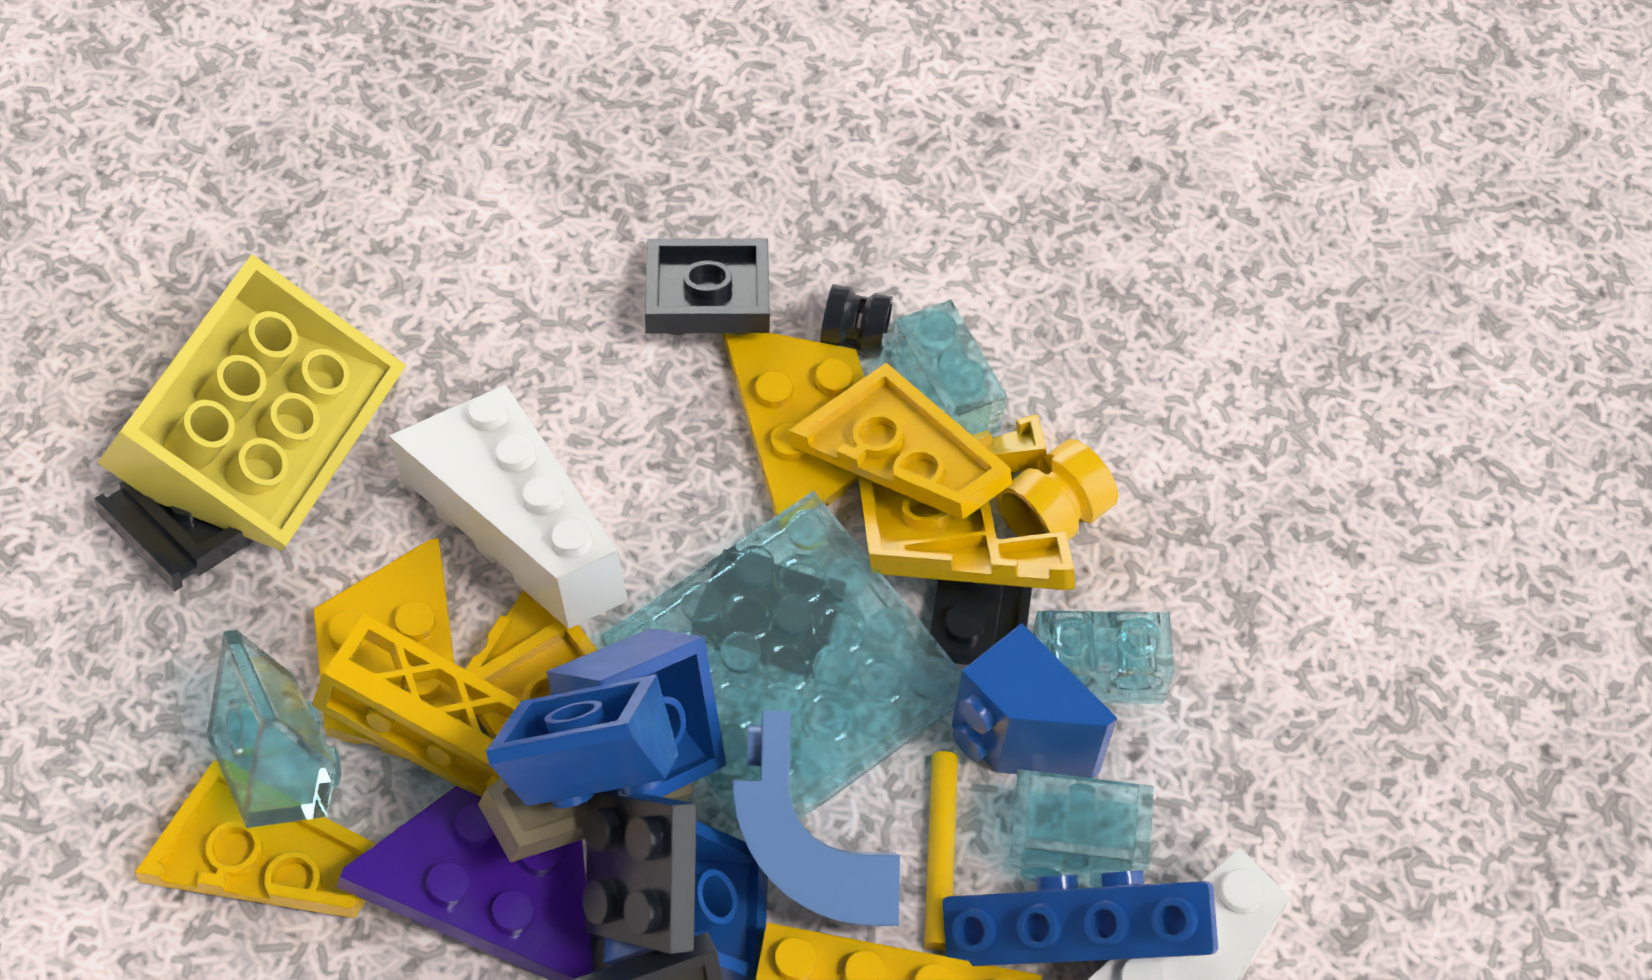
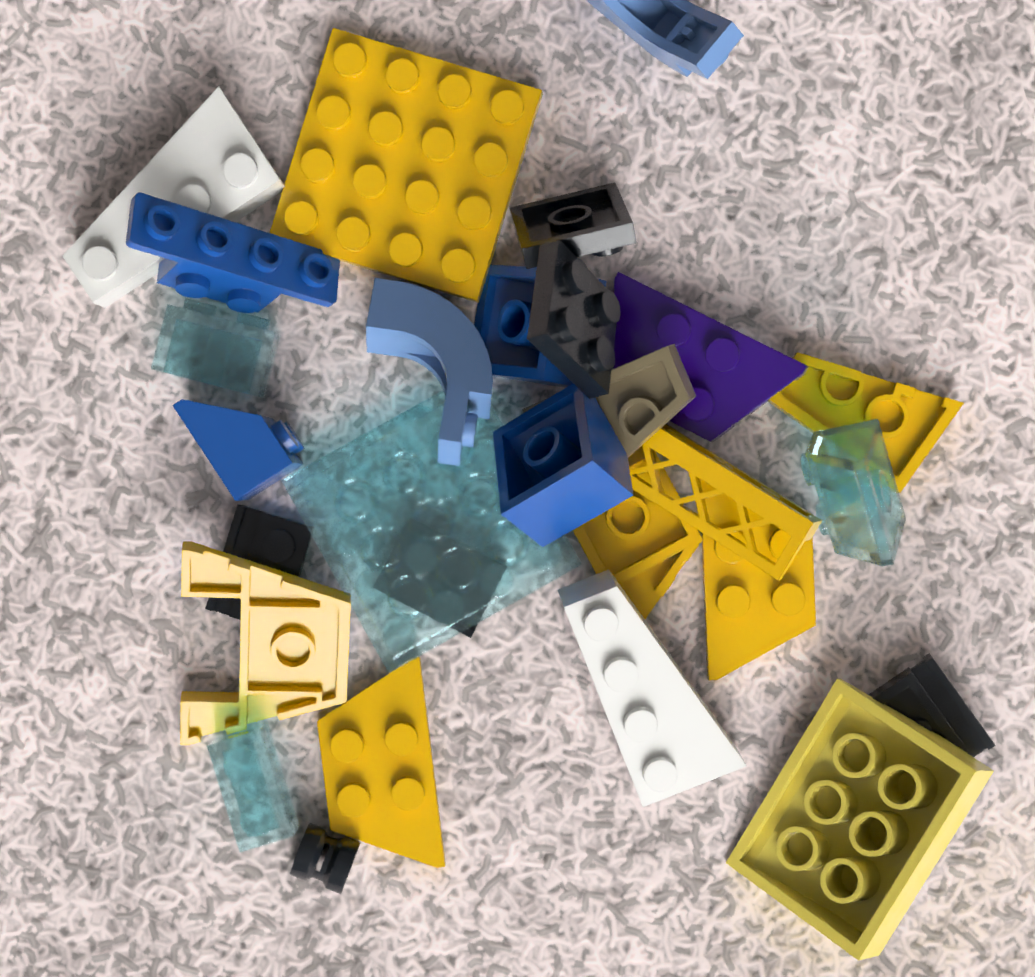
camera: 165 degrees left, 30 degrees up
(586, 743) = (609, 409): blue slope -> none
(707, 286) = (453, 906): plate -> none
(905, 443) = (304, 710): yellow wing -> none
(940, 845) = (329, 358): yellow bar -> none
(1061, 492) = (176, 655): yellow wheel -> none
(1112, 652) = (168, 497): clear light blue brick -> none

